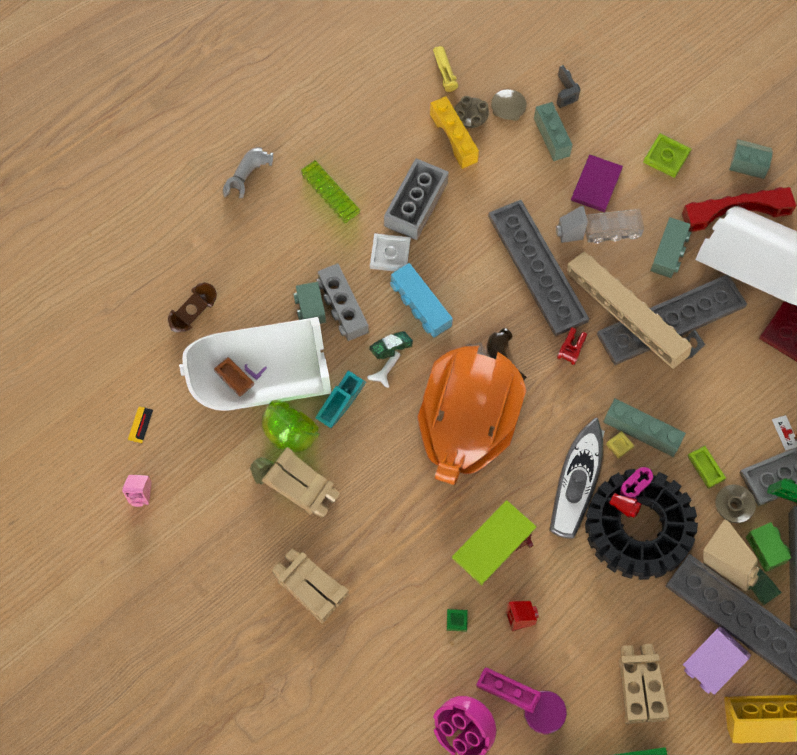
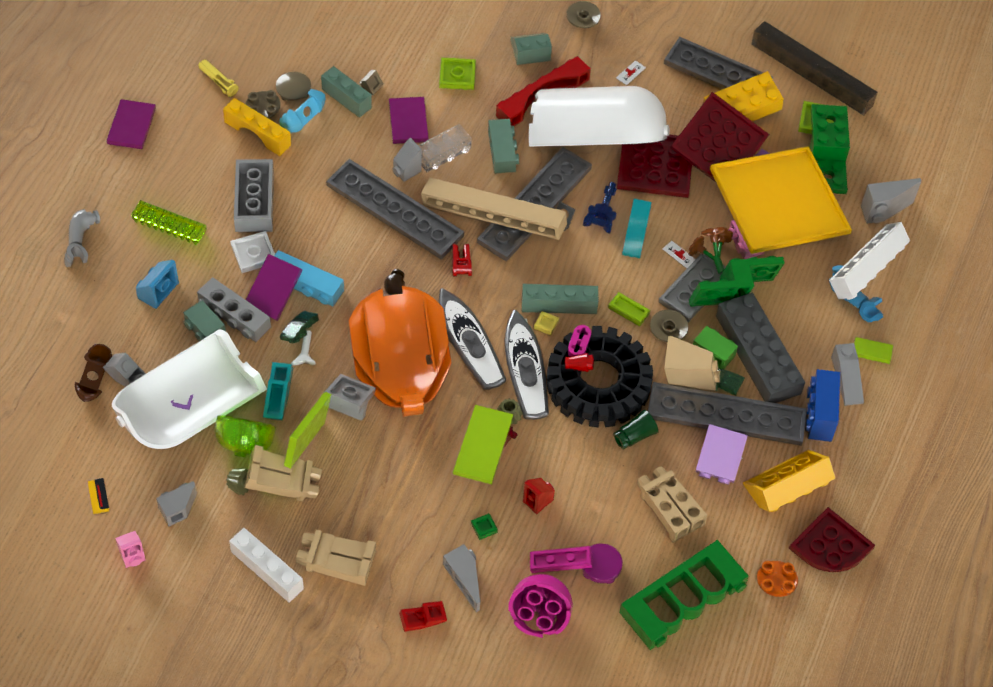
camera: 30 degrees left, 10 degrees down
(199, 466) = (177, 503): none -> light grey slope
(219, 316) = (123, 369): none -> light grey slope
(234, 377) = (167, 414): dark orange plate -> none
(244, 562) = (266, 565): none -> white brick
(289, 248) = (158, 283): none -> dark azure slope
(341, 453) = (307, 430): none -> lime tile
(347, 82) = (131, 124): none -> magenta tile
(356, 680) = (423, 617): none -> red slope
(387, 296) = (273, 286): none -> magenta tile
(399, 434) = (350, 396): none -> light grey bracket
(415, 653) = (462, 568): none -> light grey slope
(491, 140) = (295, 120): none -> medium azure piece
(540, 430) = (471, 341): none -> piece
(542, 514) = (512, 407): none -> olive piece
(572, 90) = (343, 50): dark grey bracket -> none
(581, 131) = (371, 82): none -> dark tan tile
(646, 595) = (636, 430): none -> dark green plant
(733, 355) = (602, 210): none -> clear blue piece
(756, 389) = (636, 228): none -> teal slope

